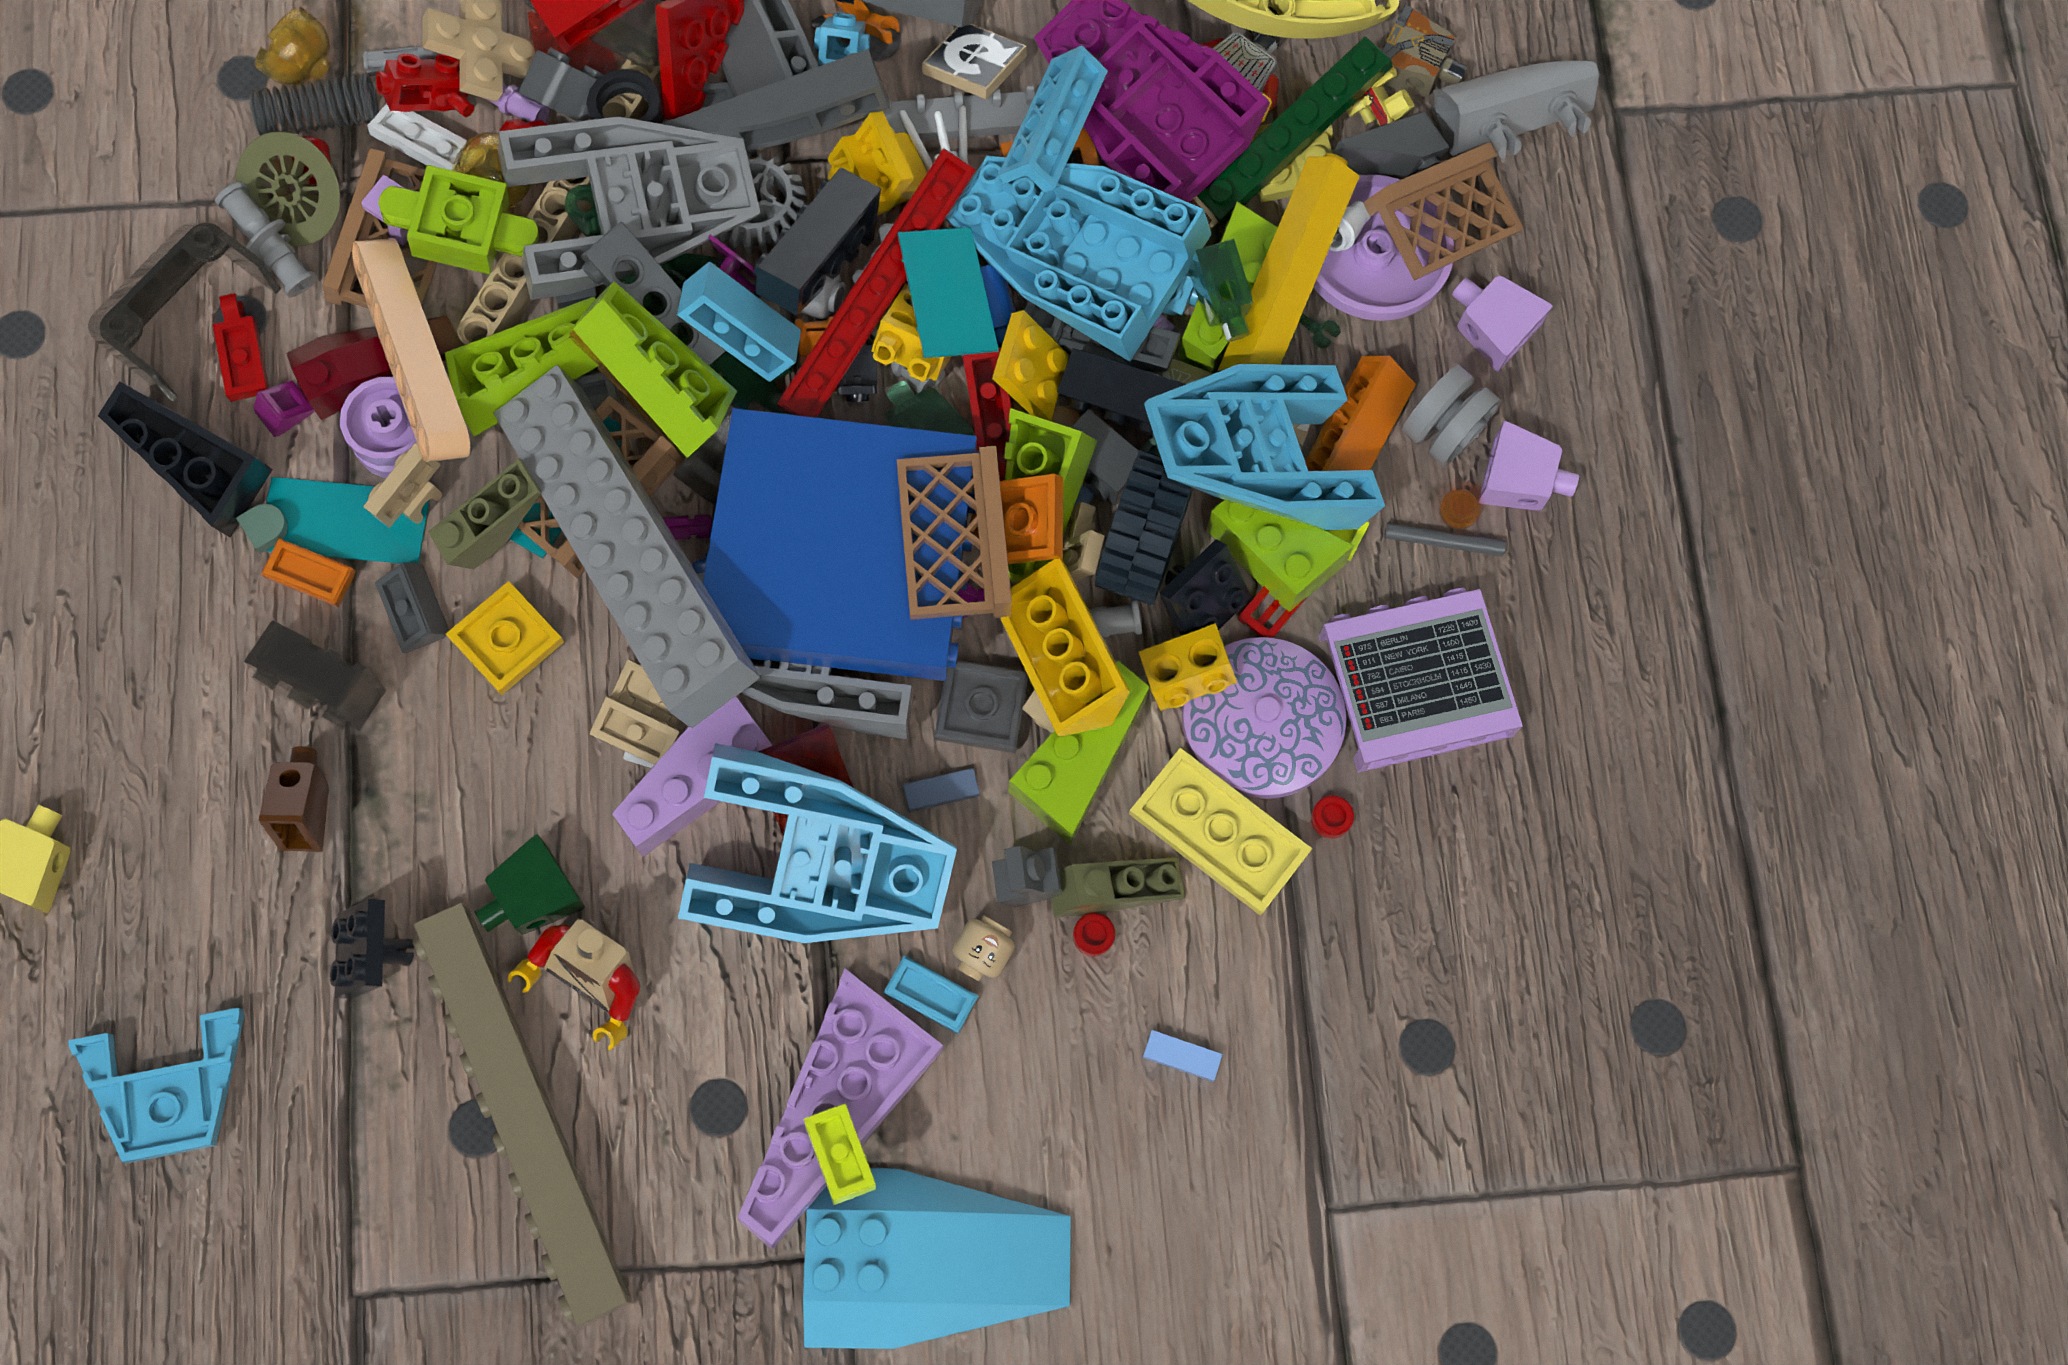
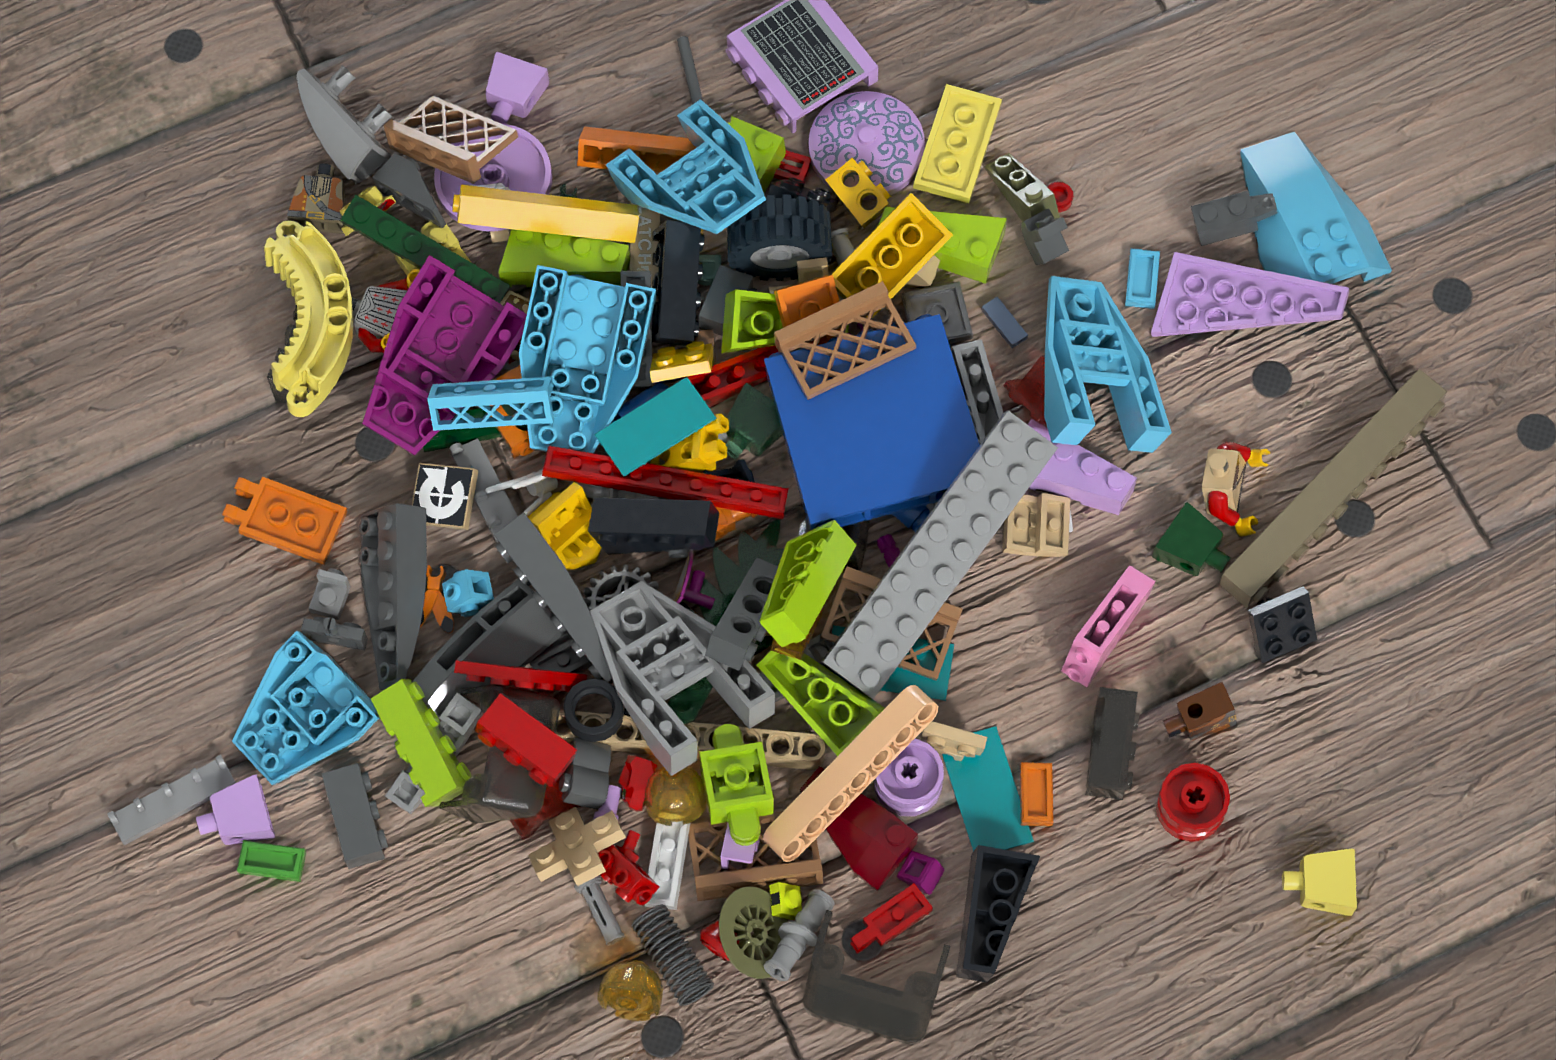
camera: 105 degrees left, 5 degrees down
(168, 1106) = (1437, 710): medium azure wing -> none
(195, 740) = (1197, 784): none -> red wheel
(263, 526) = (1016, 837): sand green tile -> none
(315, 244) = (785, 900): none -> neon yellow plate
(412, 606) = (1030, 713): dark grey slope -> none
(467, 736) = (1107, 626): none -> bright pink slope
(486, 518) = (951, 670): olive slope -> none
(505, 638) = (1026, 637): yellow plate -> none
(739, 322) = (738, 553): medium azure brick -> none
(839, 1154) = (1275, 271): neon yellow plate -> none
(962, 1145) = (1231, 216): none -> dark grey hinge
(983, 948) = (1100, 252): tan head -> none
(1182, 1055) = (1111, 120): light blue piece -> none
(1218, 274) = (584, 243): clear green torso -> none
(1332, 817) = (916, 84): red tile -> none
(1456, 419) = (608, 87): light grey wheel -> none
(1459, 509) = (666, 72): clear orange plate -> none
(1524, 470) = (623, 40): lavender torso -> none

